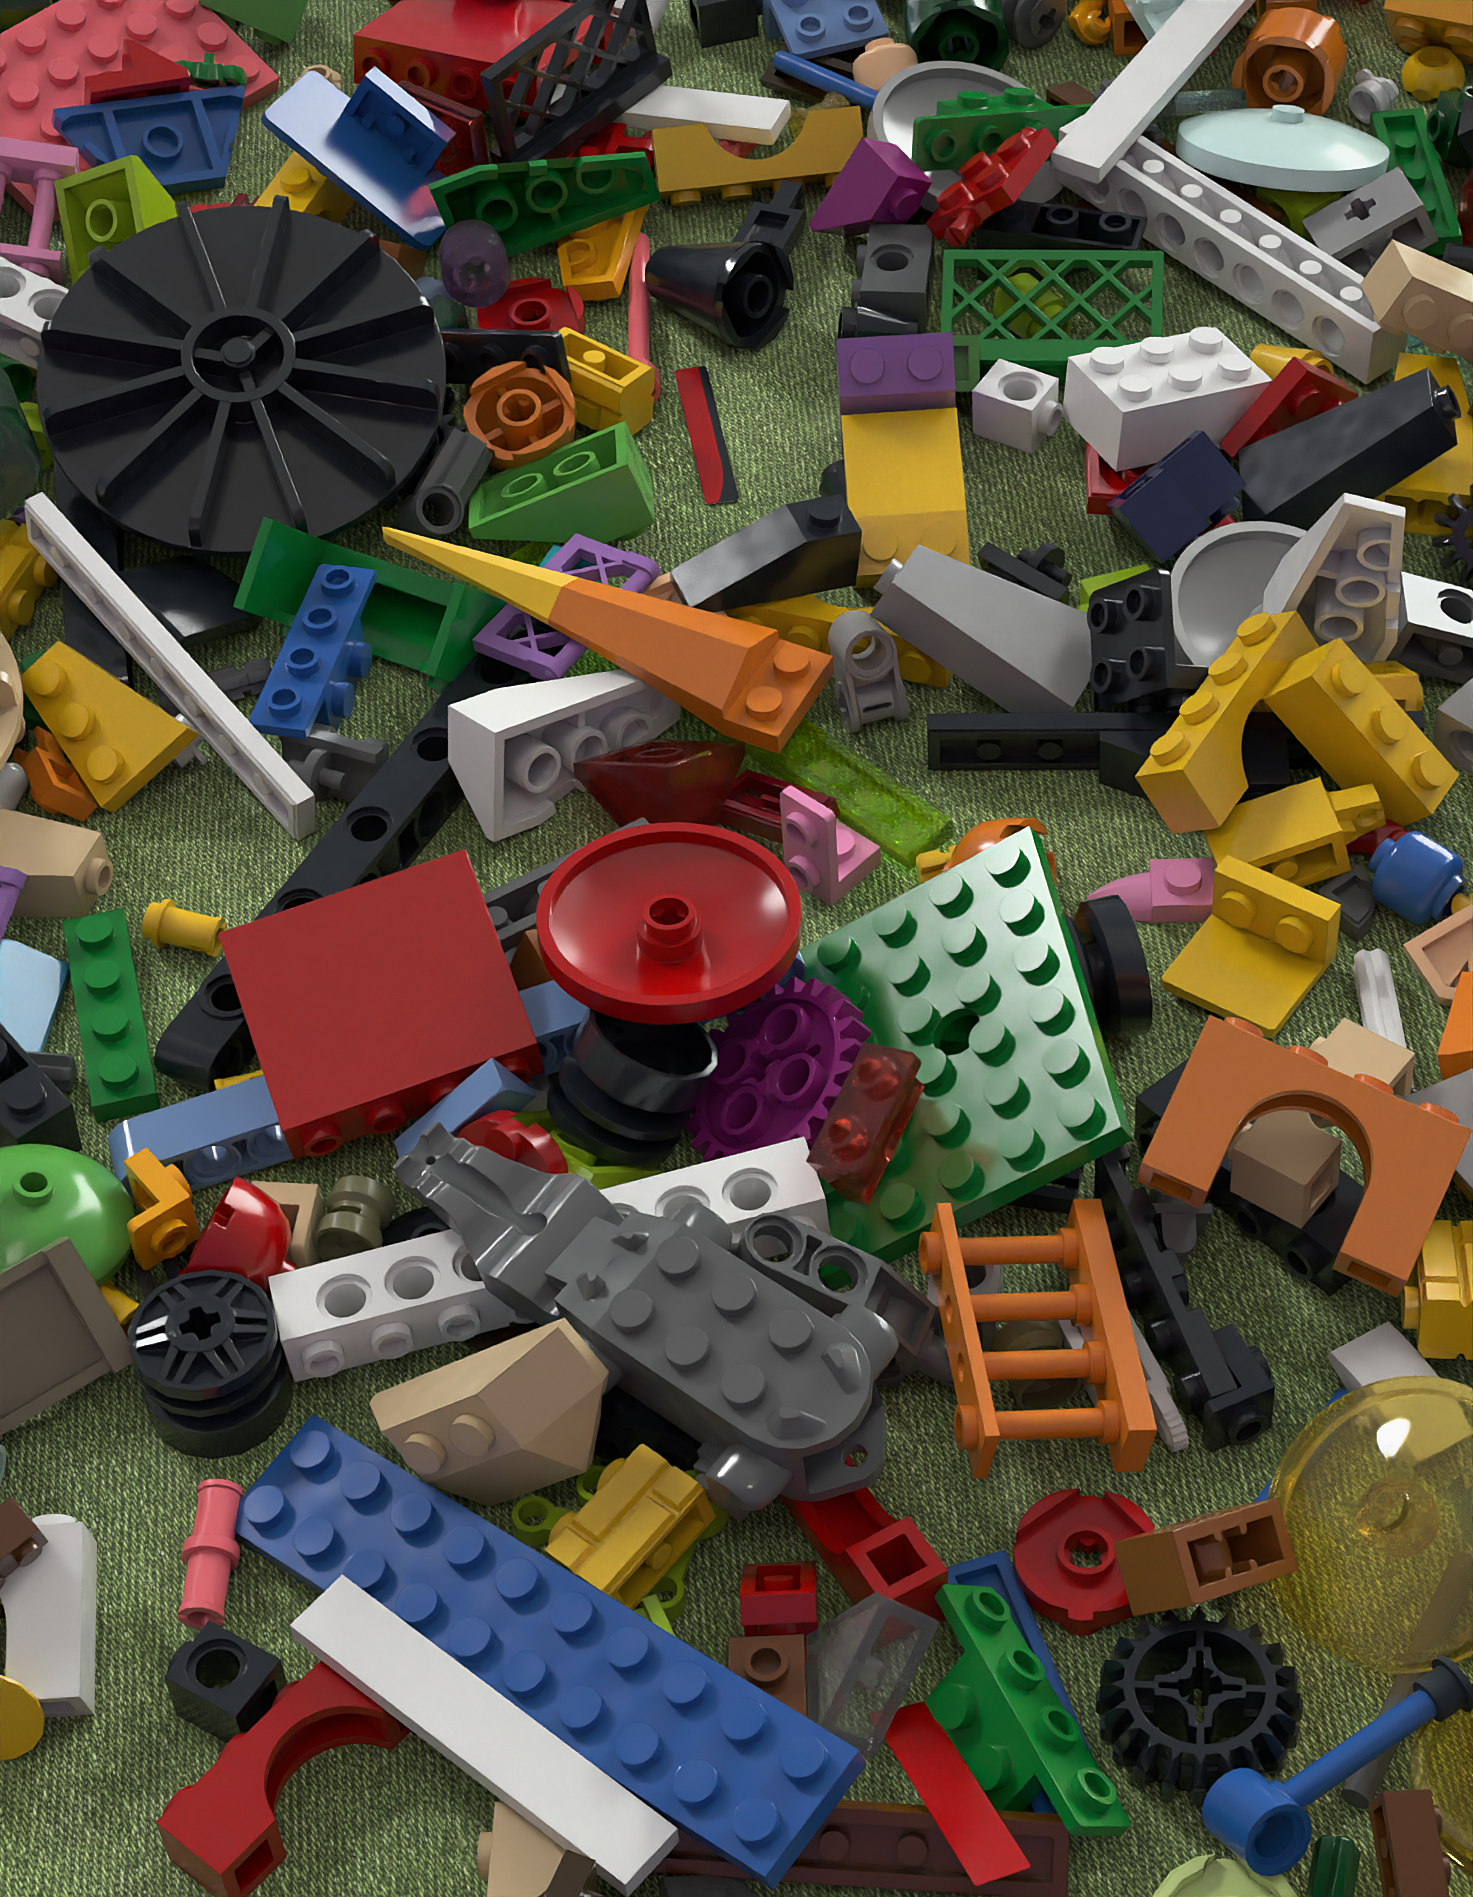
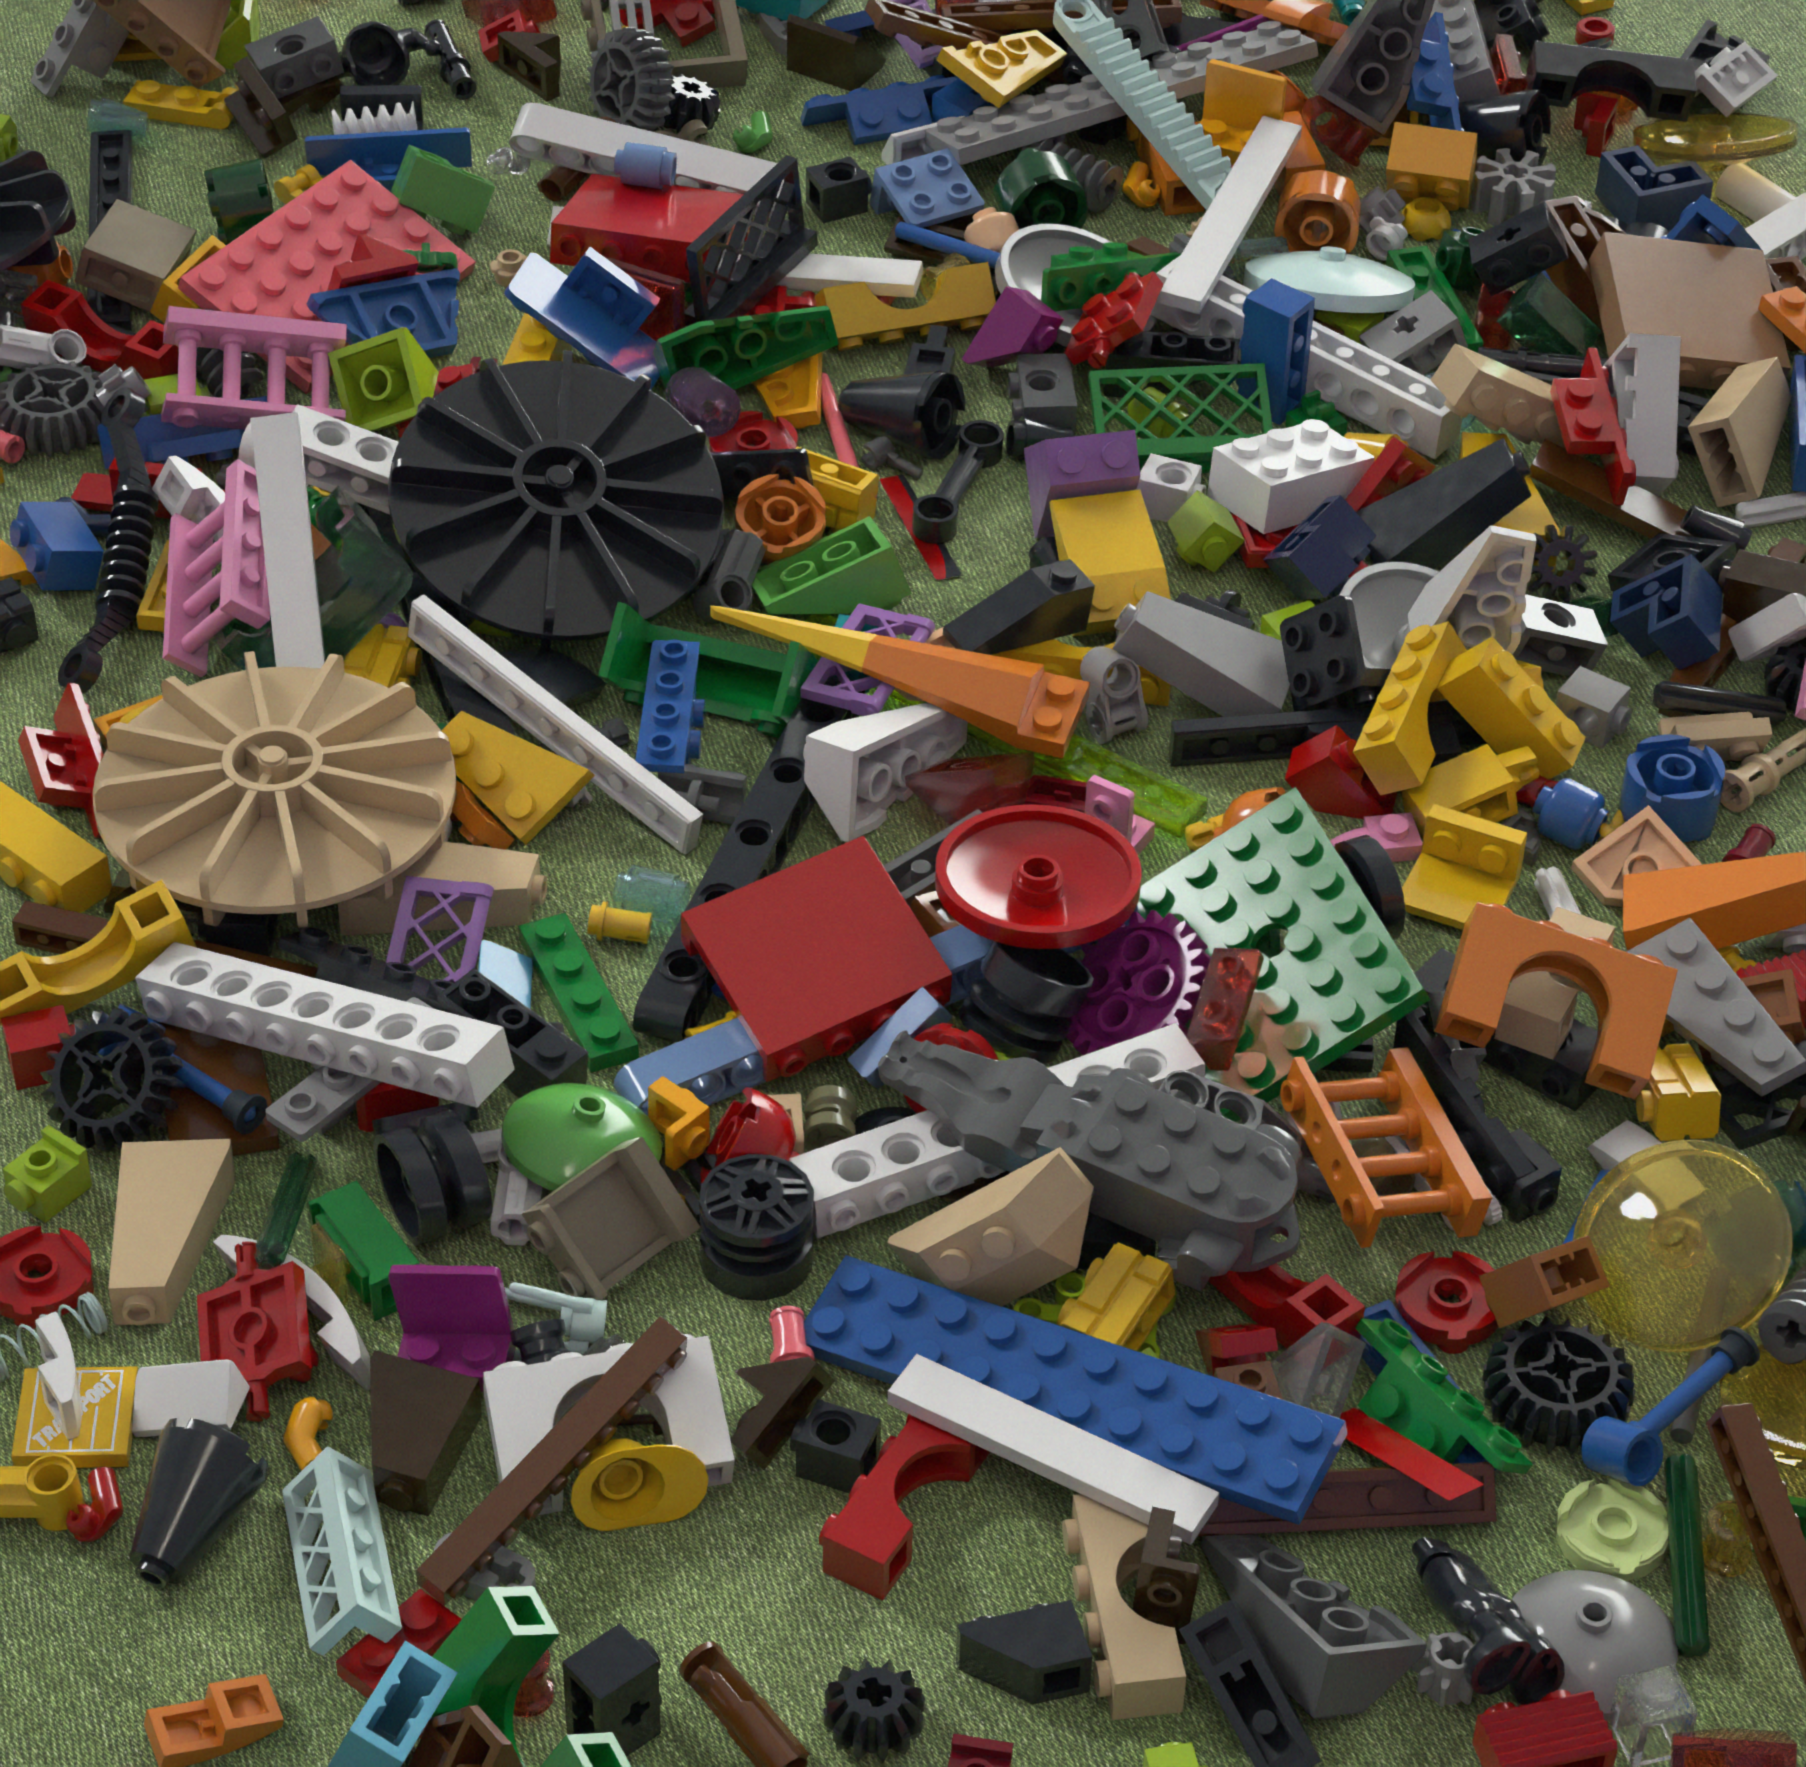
camera: 15 degrees left, 5 degrees down
(168, 1611) = (788, 1394): none -> dark brown slope
(228, 889) = (653, 892): none -> clear light blue brick
(683, 337) = (883, 452): none -> dark grey hand
(762, 380) = (978, 448): none -> black piece
(1044, 463) = (1205, 532): none -> lime brick
(1115, 809) = (1333, 778): none -> red slope
(1187, 219) = (1278, 335): none -> blue brick
(1232, 319) = (1317, 409): none -> green tile
(1377, 56) = (1383, 205): none -> light grey gear

